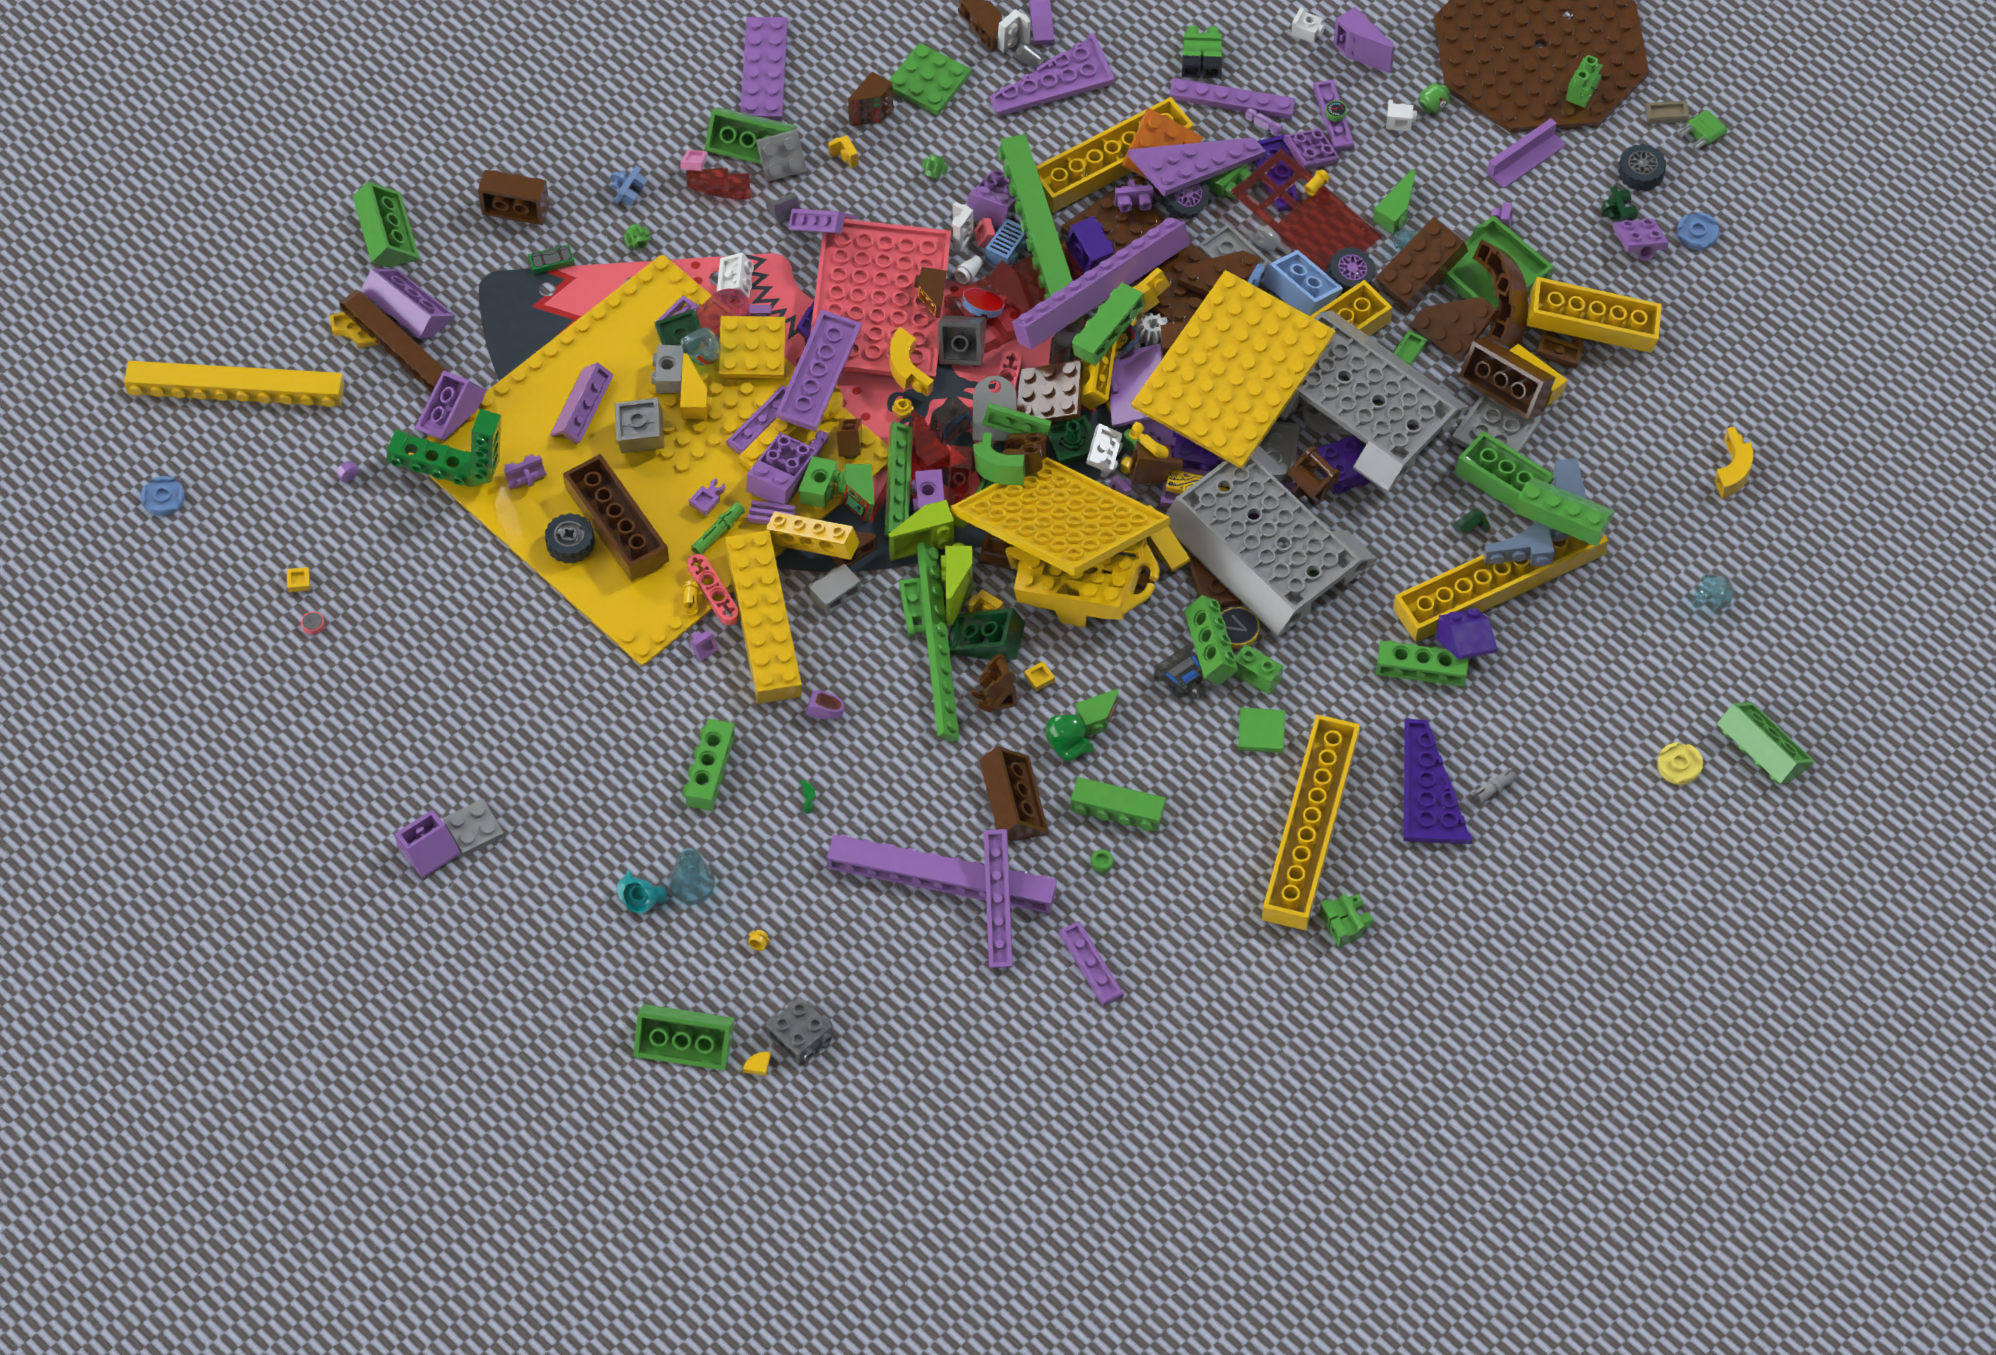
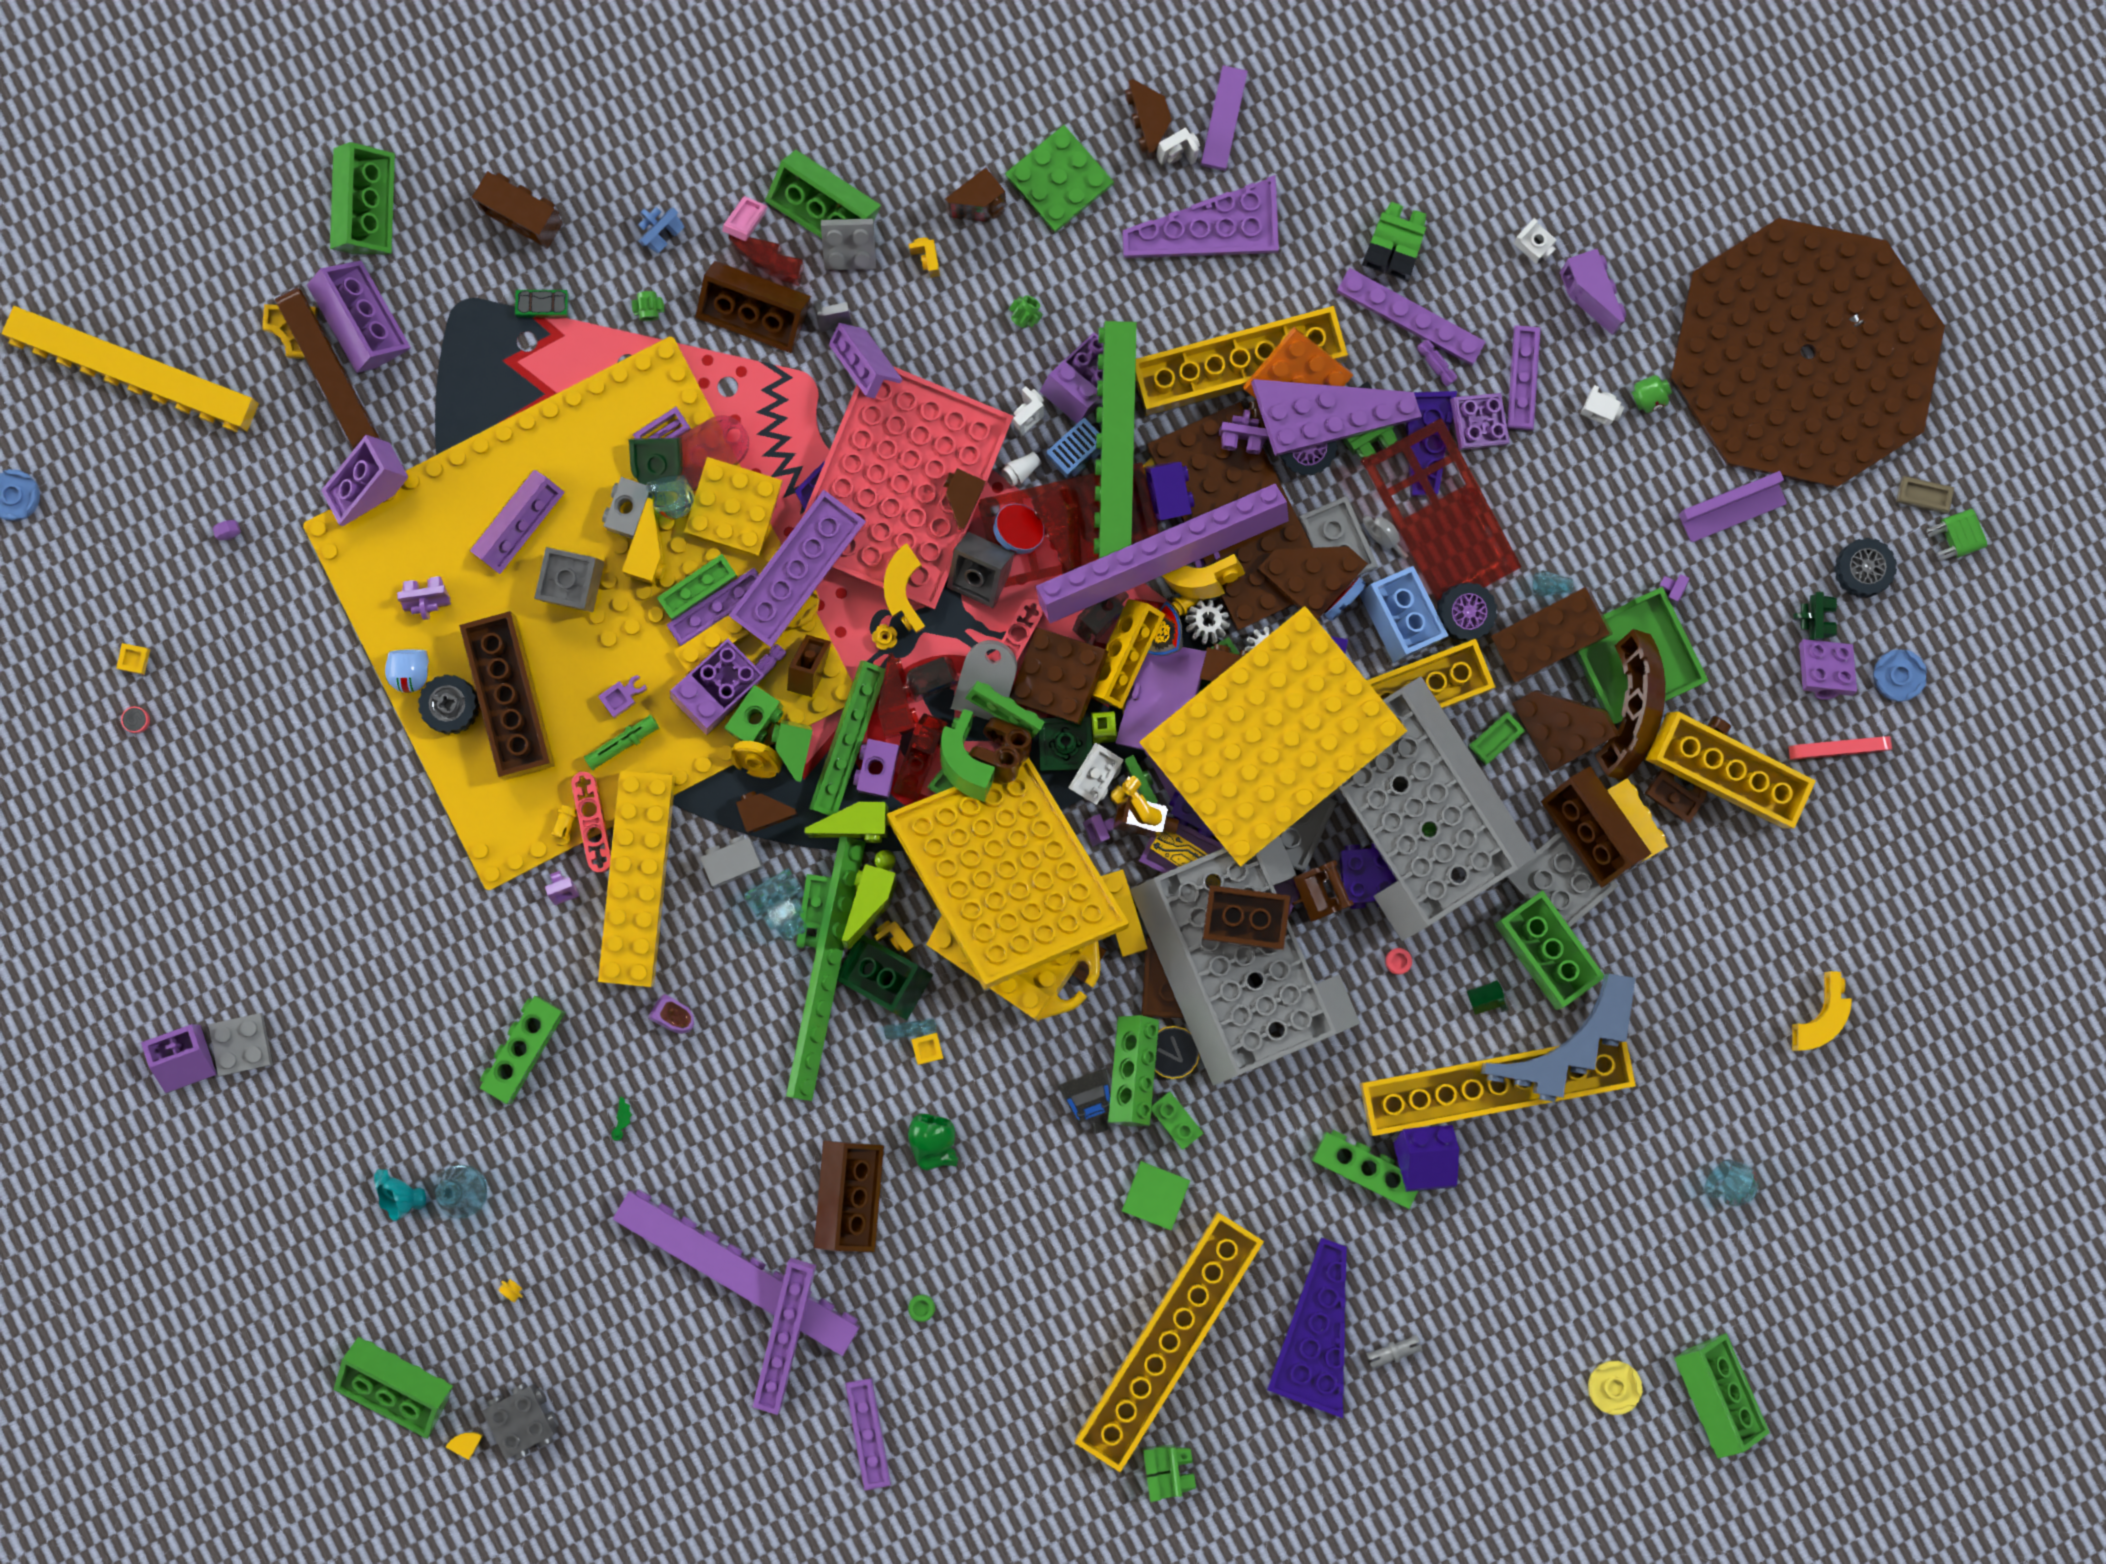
camera: 20 degrees right, 25 degrees up
(472, 467) = (363, 577): green brick -> none
(528, 520) = (407, 669): none -> light blue helmet
(719, 218) = (752, 306): none -> reddish brown slope
(735, 273) = (746, 395): white bracket -> none
(742, 408) = (697, 587): none -> bright green plate
(760, 310) = (759, 453): medium lavender tile -> none
(764, 67) = (870, 104): medium lavender plate -> none
(768, 509) = (670, 729): medium lavender tile -> none
(813, 535) = (720, 796): yellow brick -> none
(831, 506) = (757, 758): none -> yellow tile
(890, 604) = (775, 899): none -> clear light blue tile
(984, 232) = (1055, 423): coral plate -> none
(997, 685) = (870, 1056): reddish brown piece -> none
(1019, 667) = (910, 1029): none -> clear light blue axle
(1028, 55) = (1188, 184): flat silver cone -> none
(1097, 711) = (975, 1119): bright green slope -> none
(1098, 412) = (1103, 727): none -> lime leg
(1108, 323) = (1150, 618): bright green brick -> none
(1117, 804) = (960, 1245): bright green brick -> none
(1260, 494) = (1246, 917): none -> reddish brown brick
(1321, 178) = (1467, 479): yellow pin -> none
(1336, 111) = (1527, 377): tile -> none
(1390, 519) = (1398, 961): none -> coral tile
(1393, 209) = (1550, 537): bright green slope -> none
(1564, 511) = (1596, 1050): bright green slope -> none
(1584, 81) = (1838, 434): bright green hips -> none
(1675, 285) = (1840, 748): none -> coral beam

